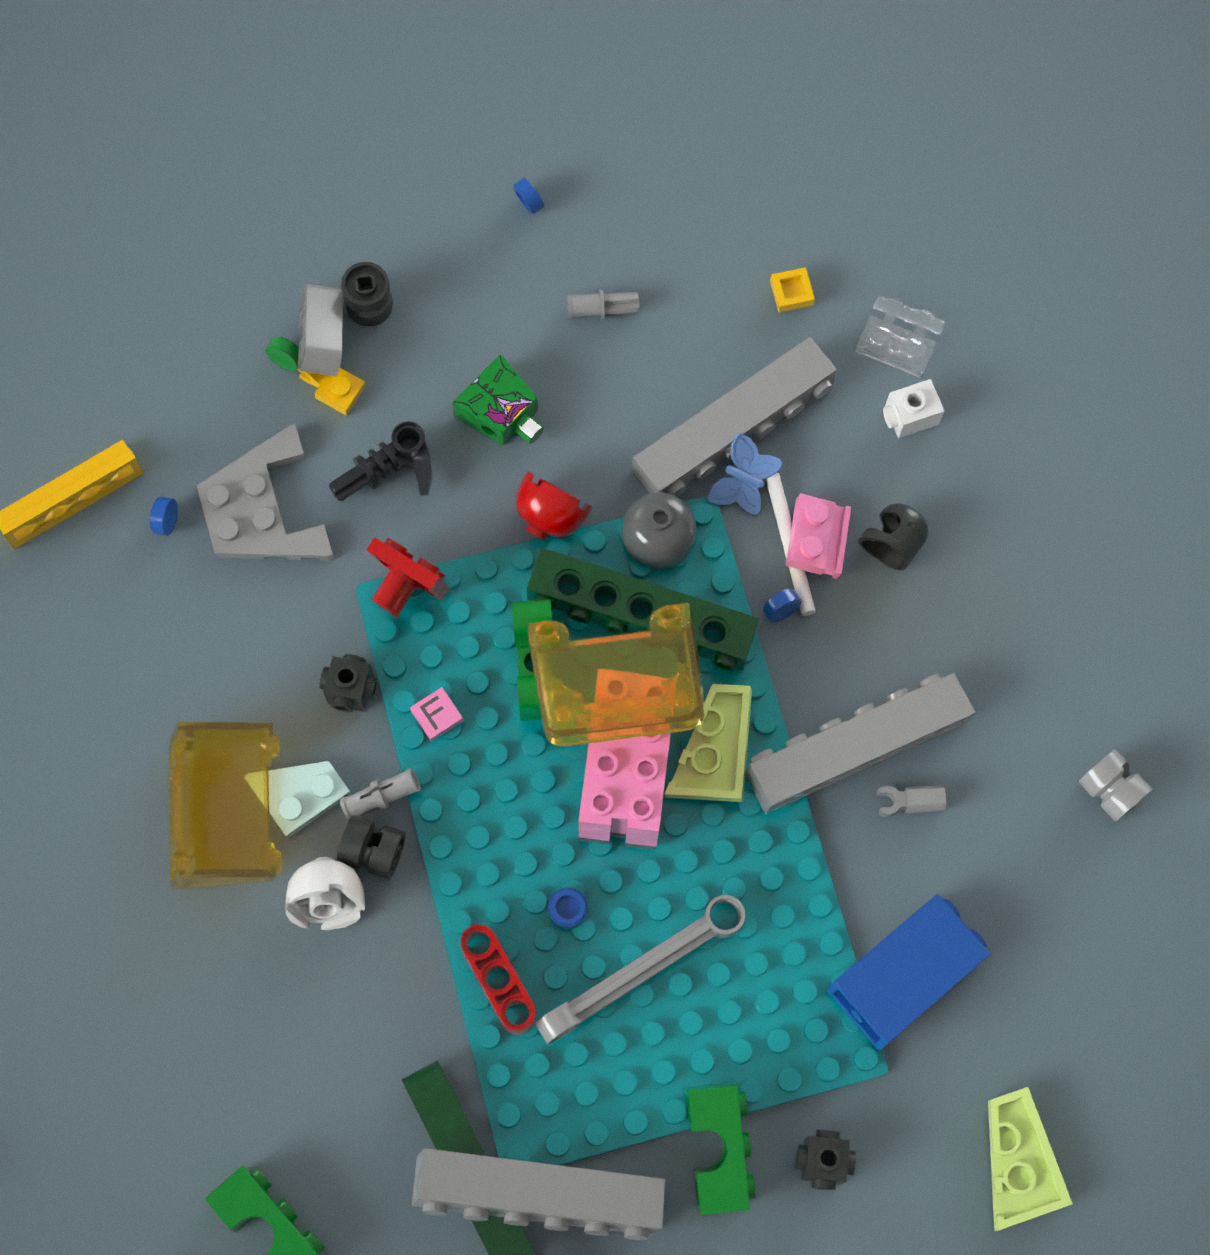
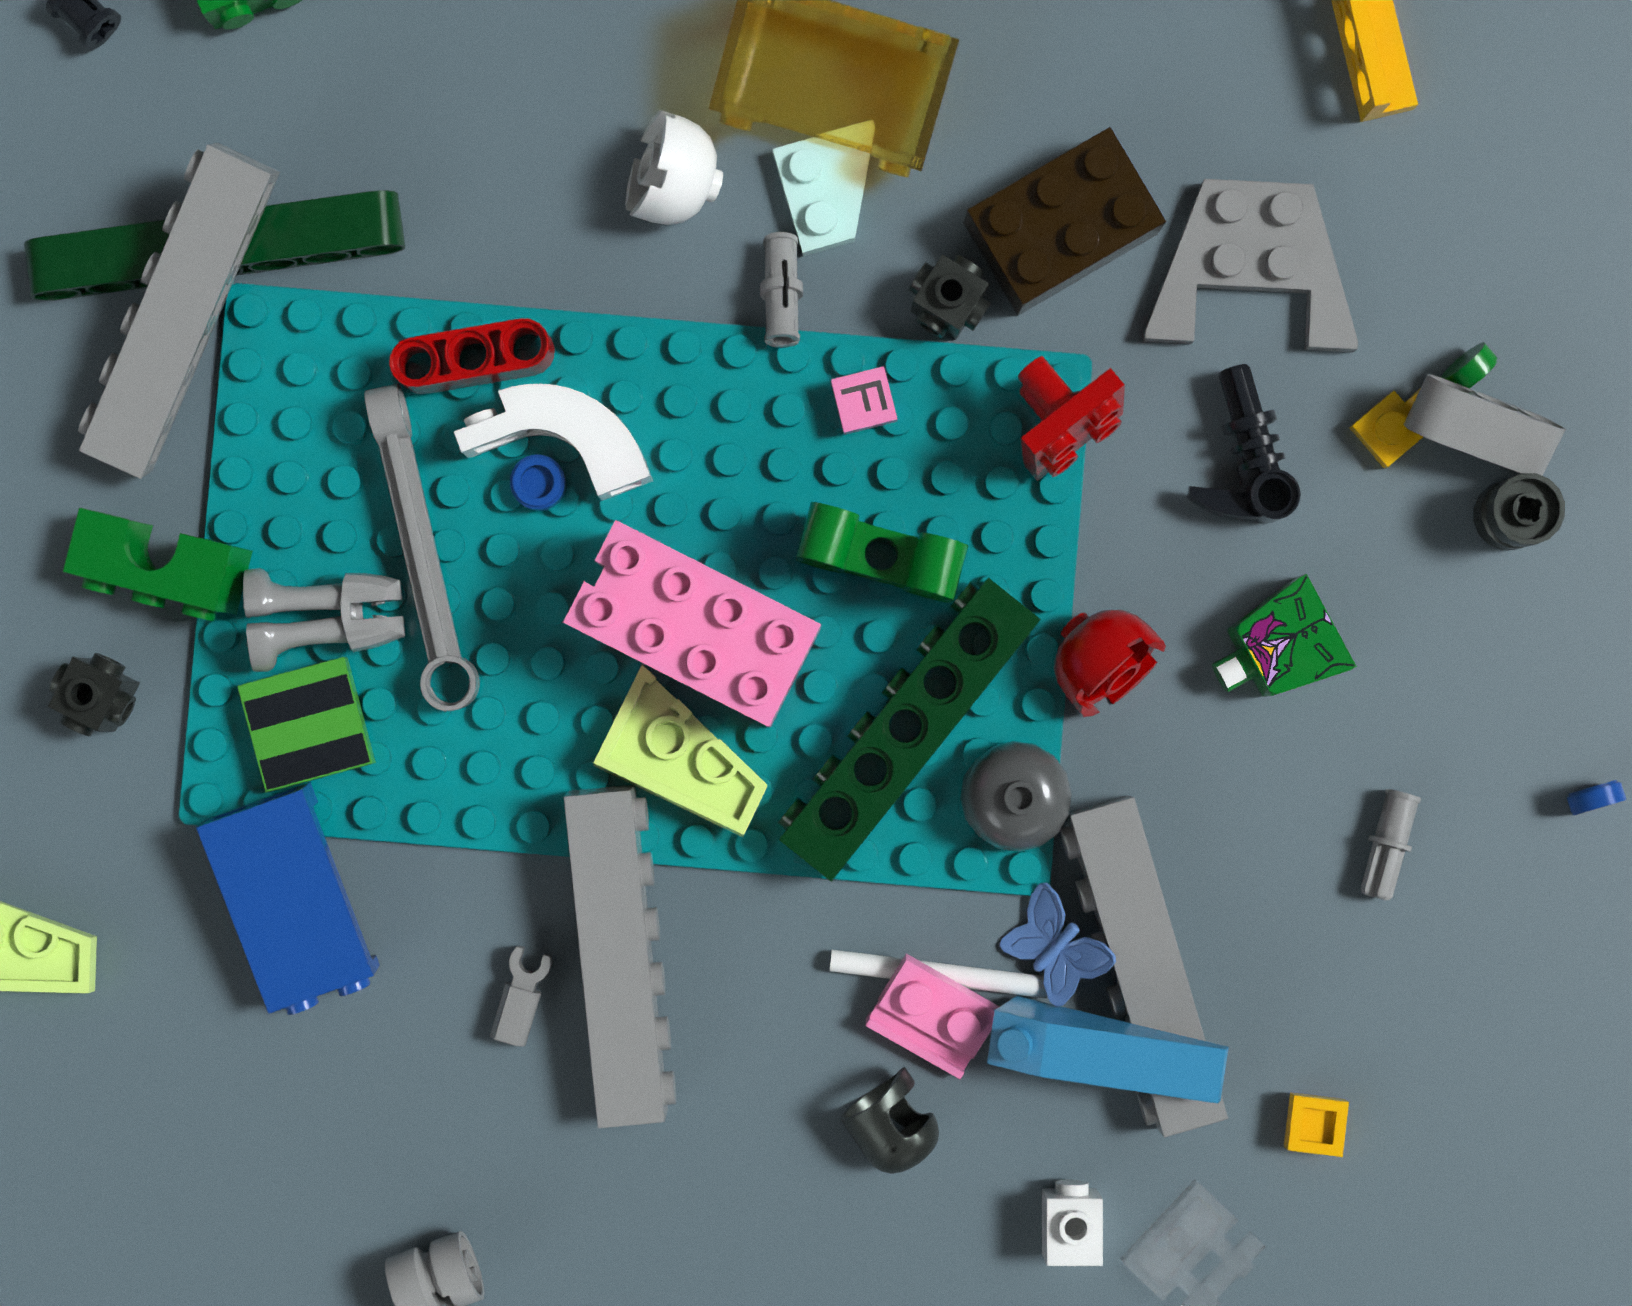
camera: 110 degrees right, 15 degrees up
(163, 515) = (1282, 125): blue tile -> none
(273, 628) = (1064, 221): none -> dark brown brick
(371, 847) = (723, 237): pearl dark grey wheel -> none
(522, 875) = (569, 415): none -> white arch
(618, 682) = (764, 633): clear yellow windscreen -> none
(714, 1057) = (270, 639): none -> light grey piece
(782, 605) = (851, 926): blue tile -> none
(789, 1004) = (306, 724): none -> tile
(799, 420) = (1104, 1052): none -> dark azure slope

